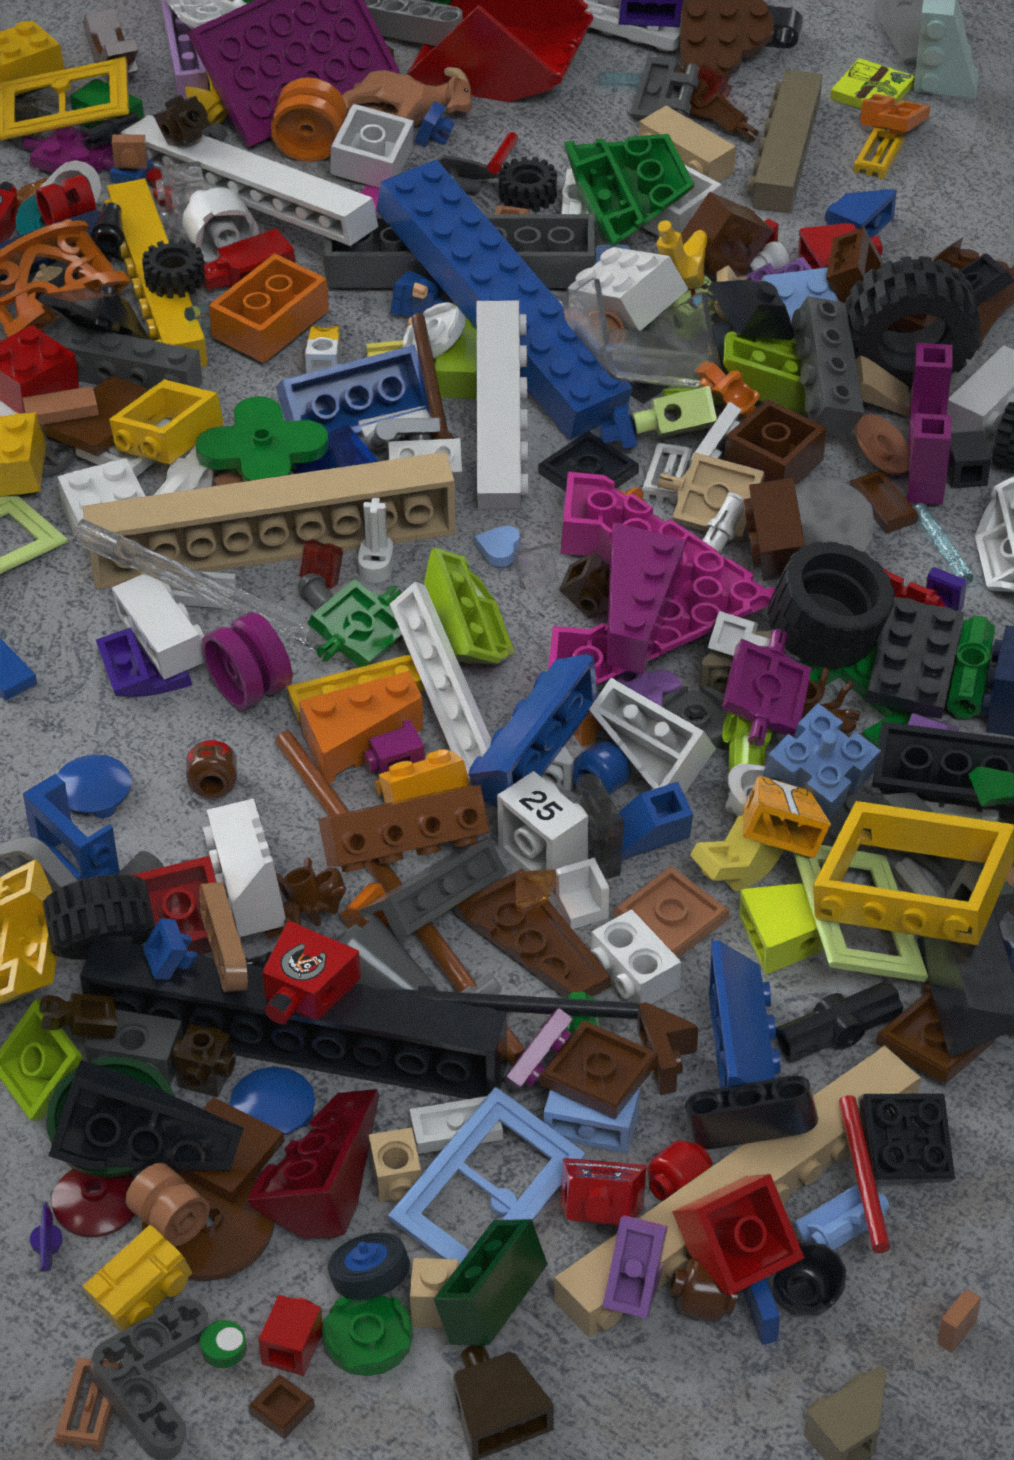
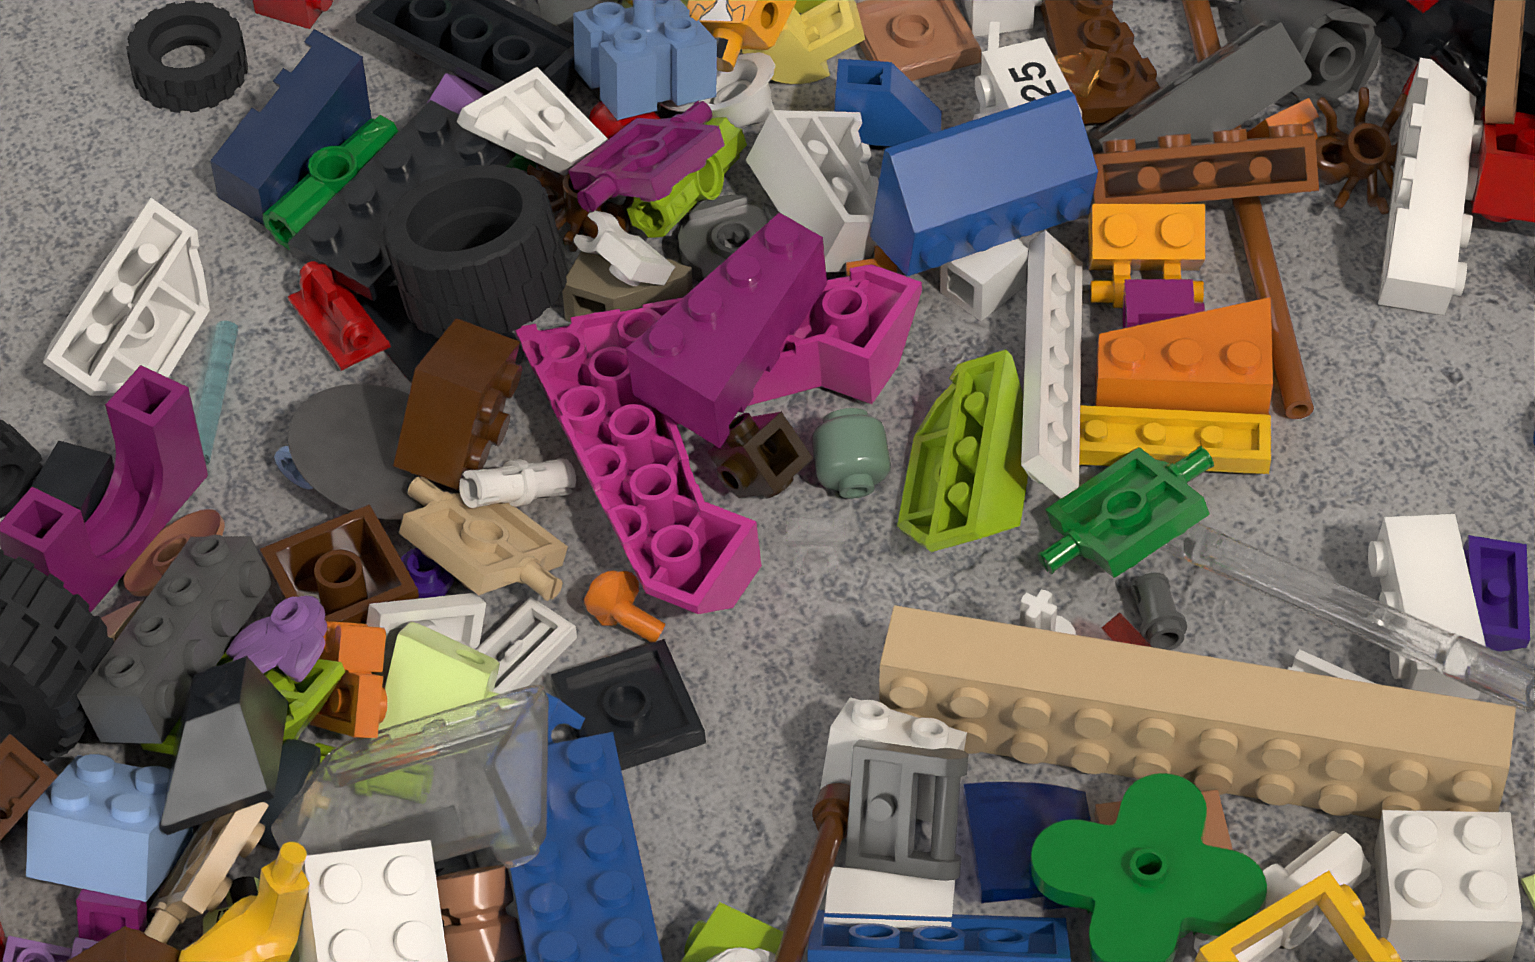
camera: 155 degrees left, 5 degrees up
(211, 769) = (1423, 372): reddish brown head -> none
(247, 660) = (1323, 479): magenta wheel -> none
(498, 405) = (728, 771): white brick -> none
(498, 545) = (842, 614): light blue tile -> none
(539, 611) = (850, 452): none -> sand green head
(604, 825) = (956, 81): clear smoke plate -> none
(768, 368) = (286, 638): none -> medium lavender plate
(861, 699) = (534, 122): none -> white wing
(889, 506) = (241, 485): reddish brown tile -> none
(949, 587) = (279, 298): dark purple tile -> none

